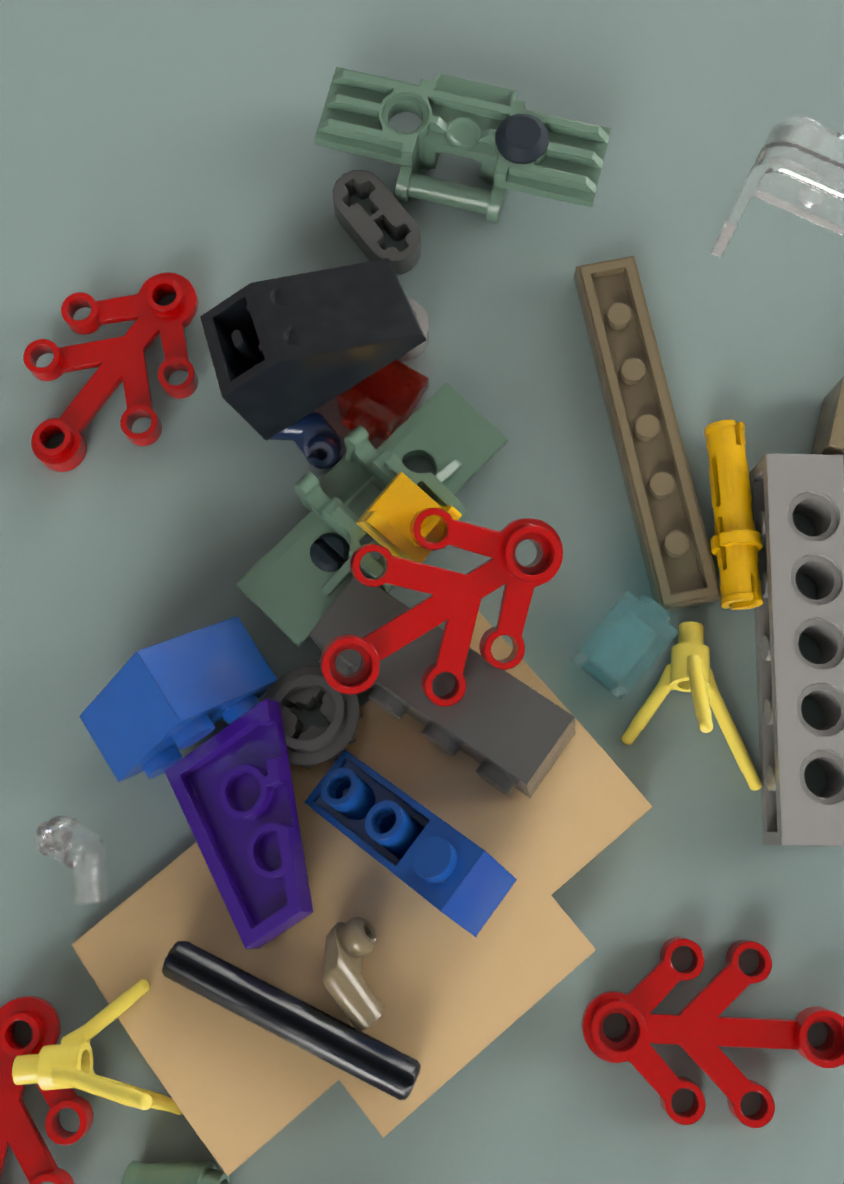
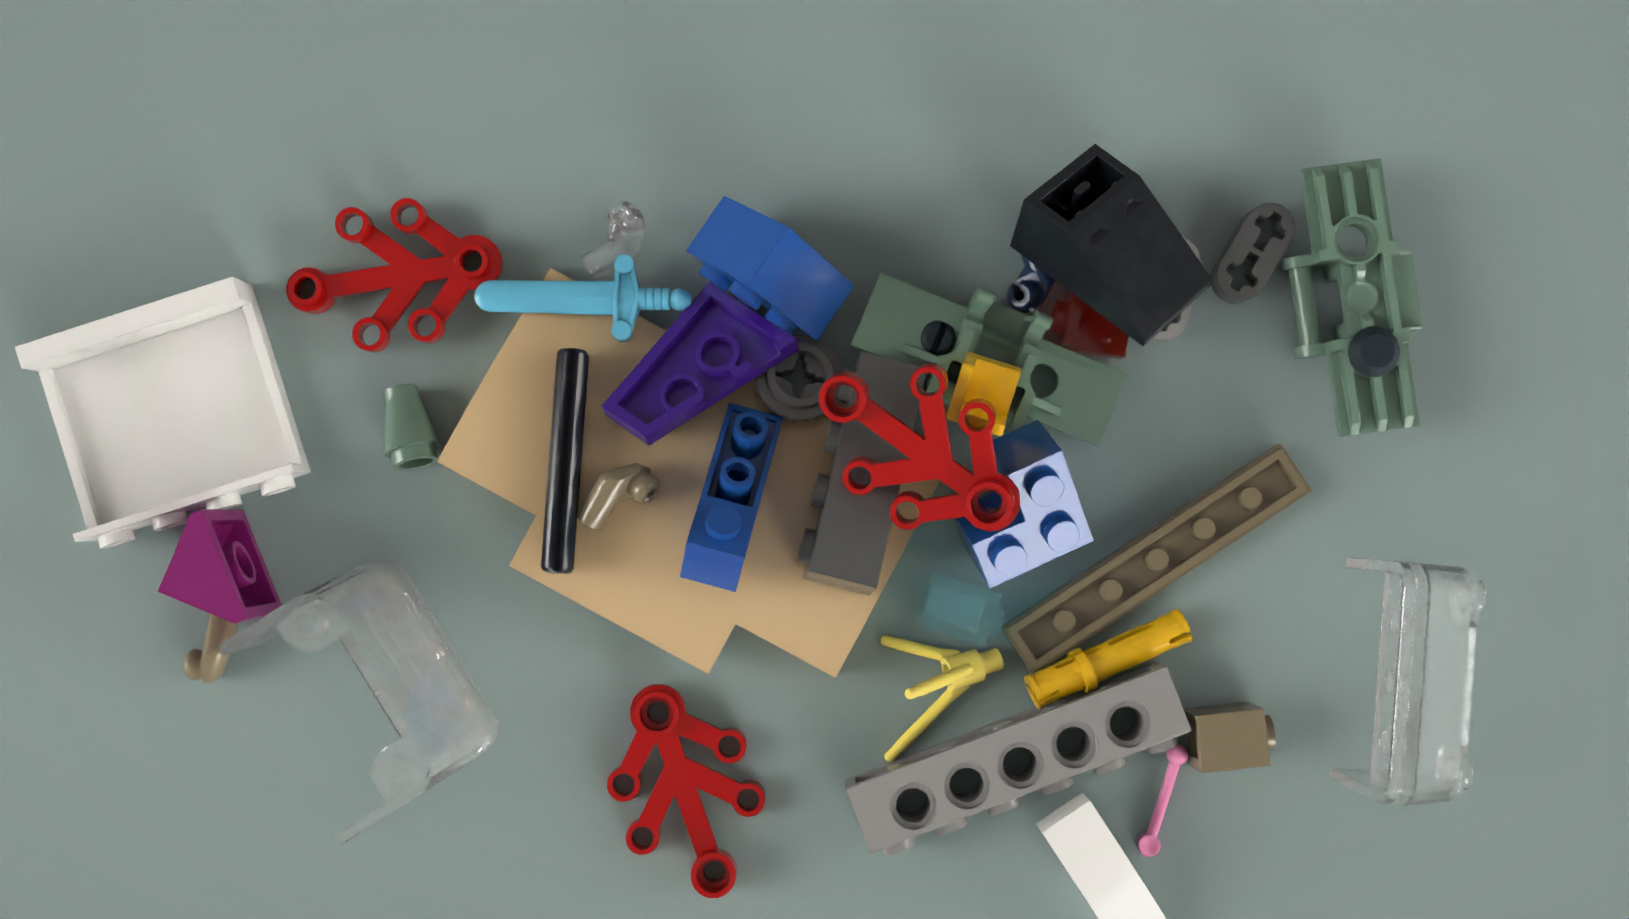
camera: 65 degrees right, 10 degrees up
(72, 1062) = (468, 310): light yellow plant -> none
(118, 361) = (1034, 88): red plant -> none
(137, 878) = (618, 298): none -> medium azure sword
(572, 505) = (1049, 511): none -> brick

